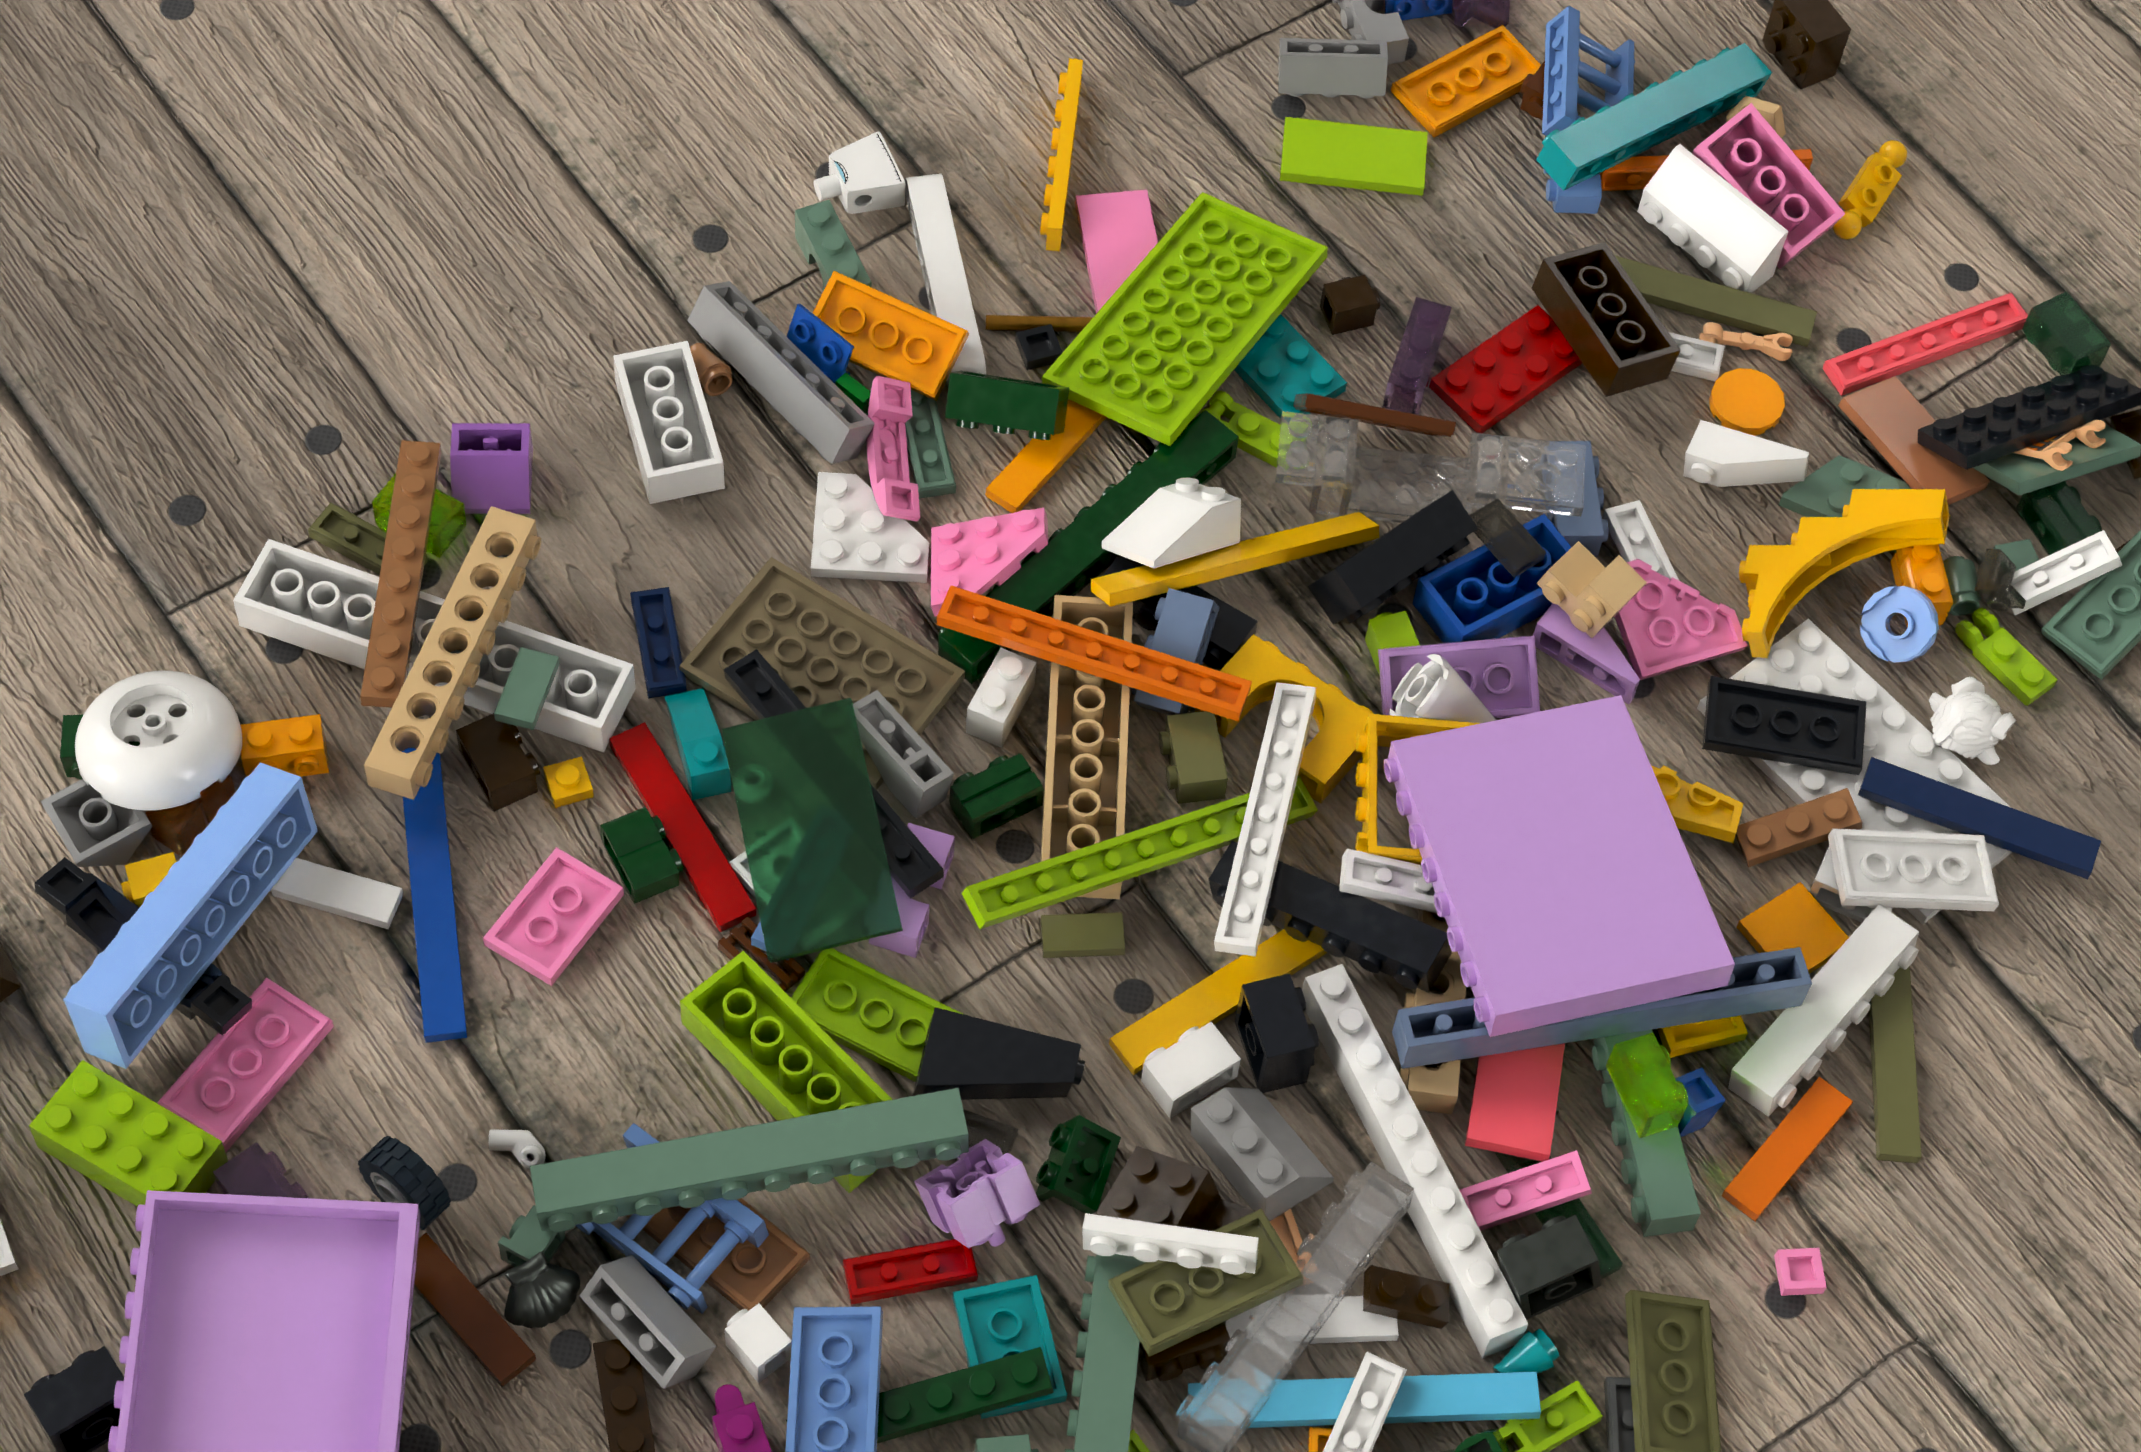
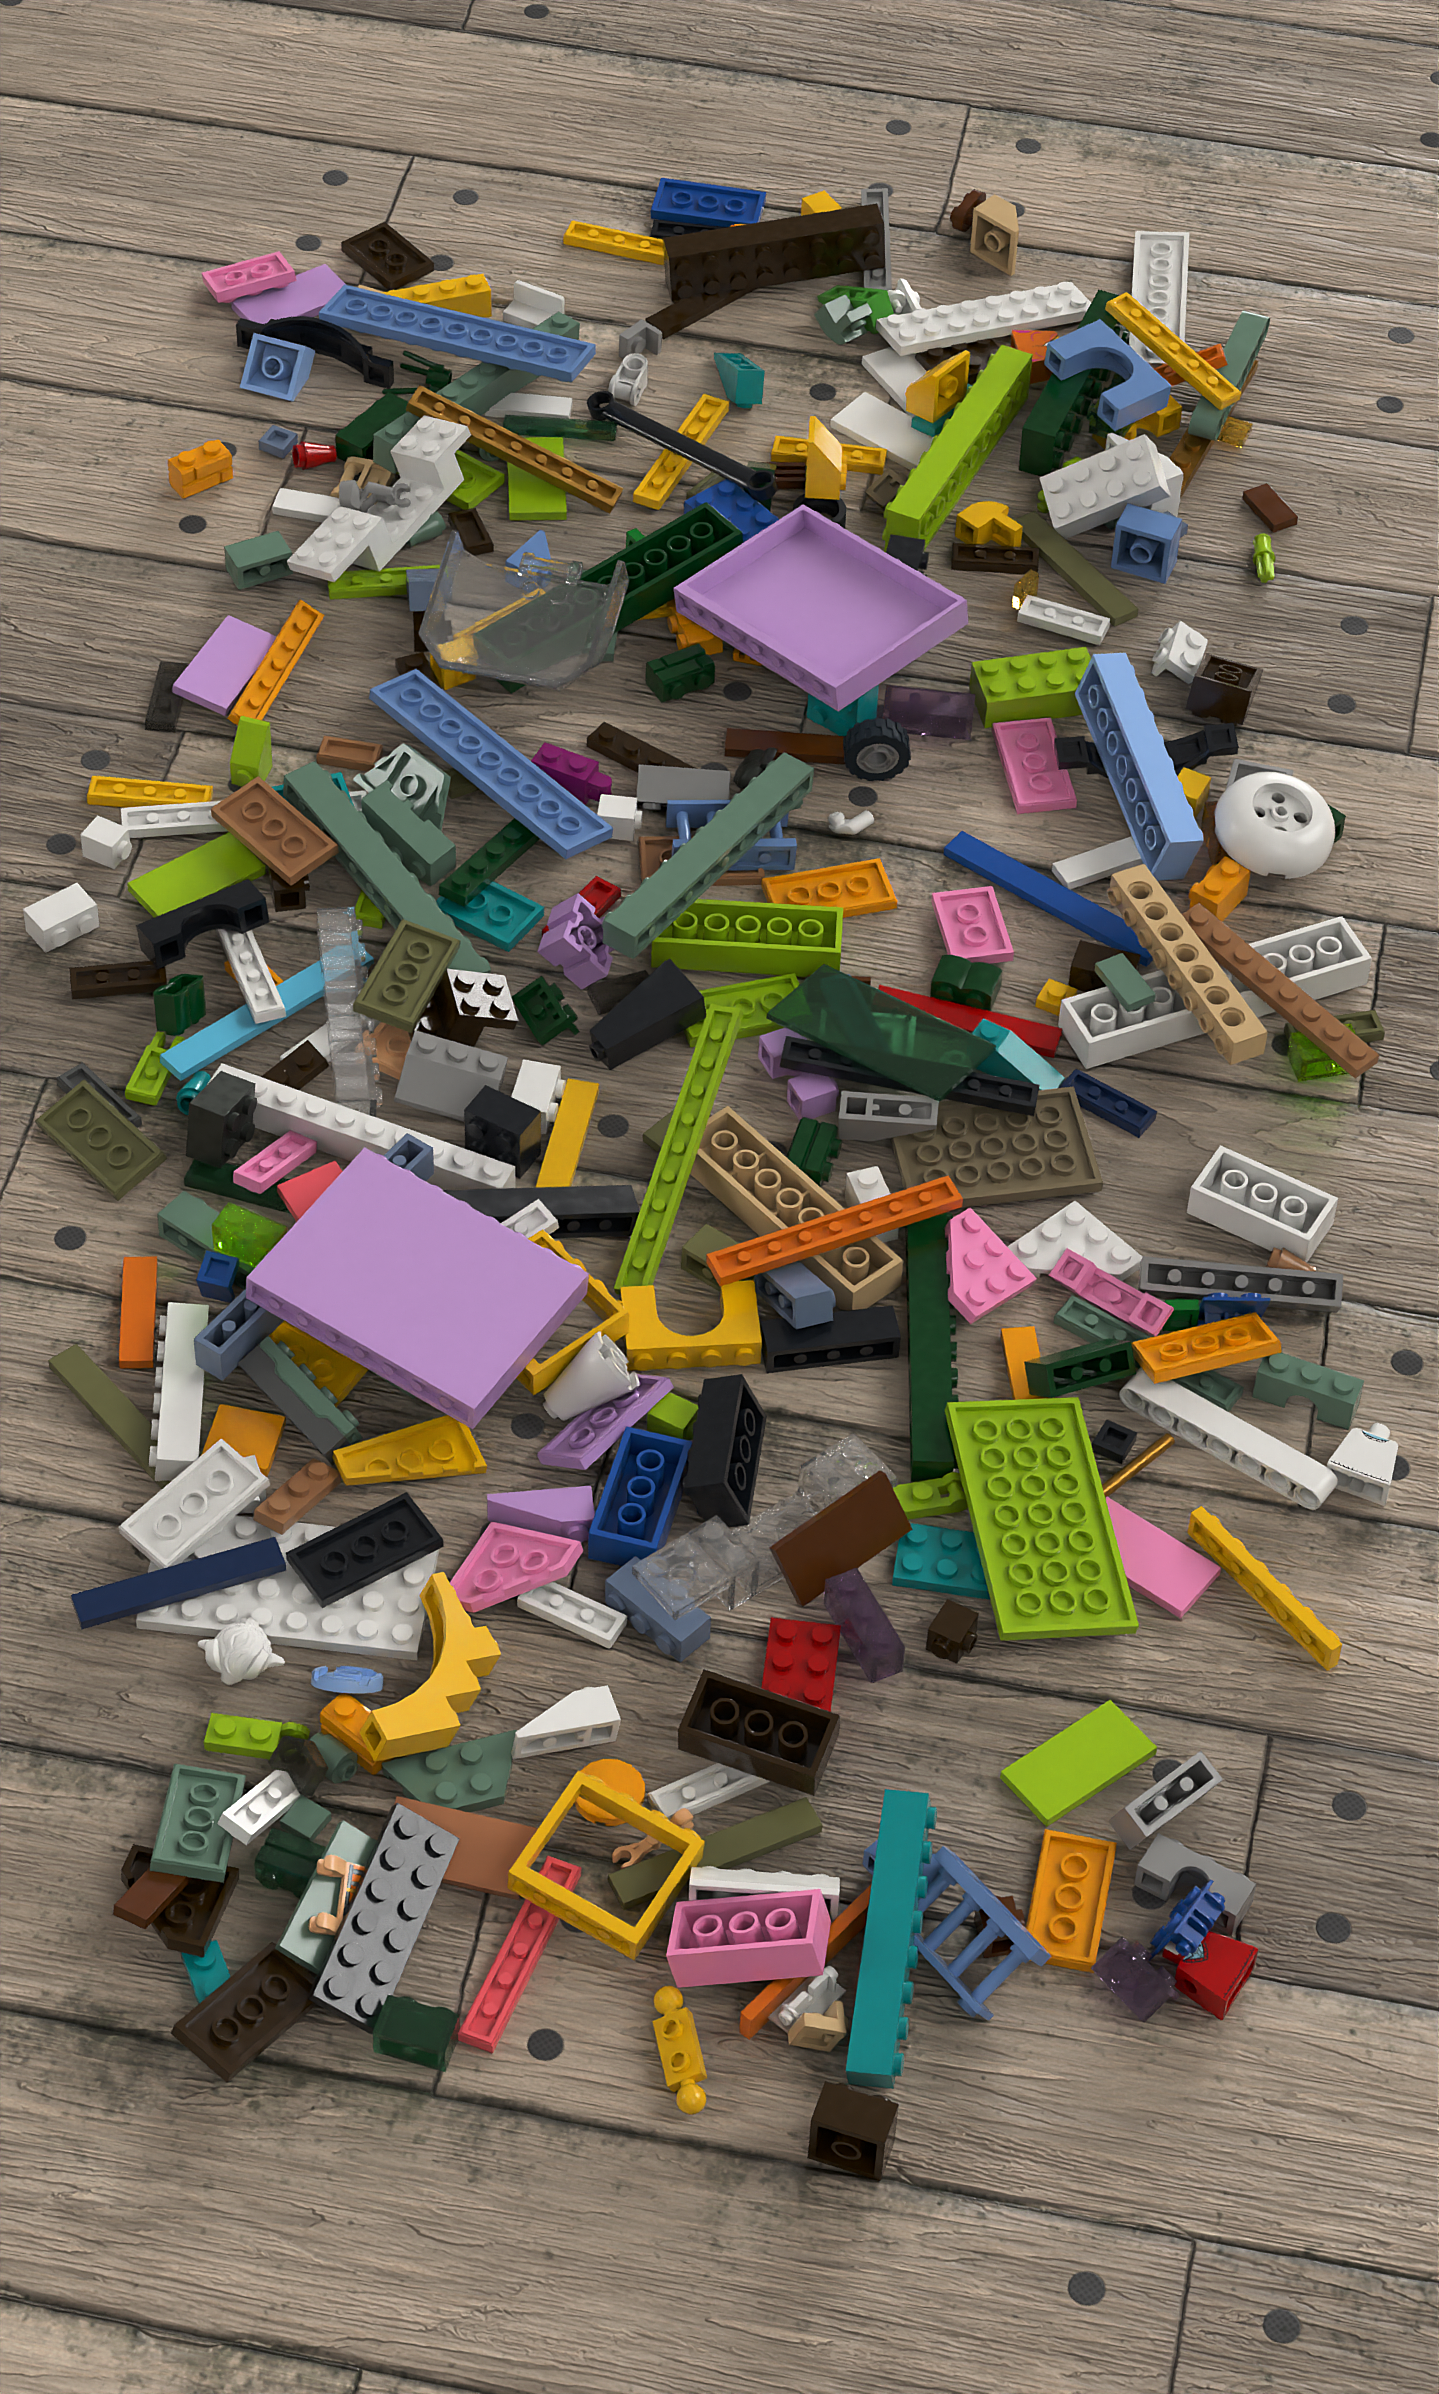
camera: 140 degrees right, 10 degrees down
(492, 466) = (1325, 1108): medium lavender slope -> none
(636, 1080) = (854, 886): none -> light orange tile
(1170, 1243) = (434, 962): white plate -> none
(1178, 524) = (879, 1357): white slope -> none
(1236, 559) = (822, 1378): yellow tile -> none
(1265, 820) = (631, 1226): white plate -> none
(1507, 538) = (662, 1503): clear smoke tile -> none
(1589, 589) = (565, 1500): tan brick -> none
(1727, 876) = (299, 1399): none -> piece
(1800, 1271) = (72, 1245): bright pink plate -> none
(1890, 353) = (582, 1913): none -> yellow window

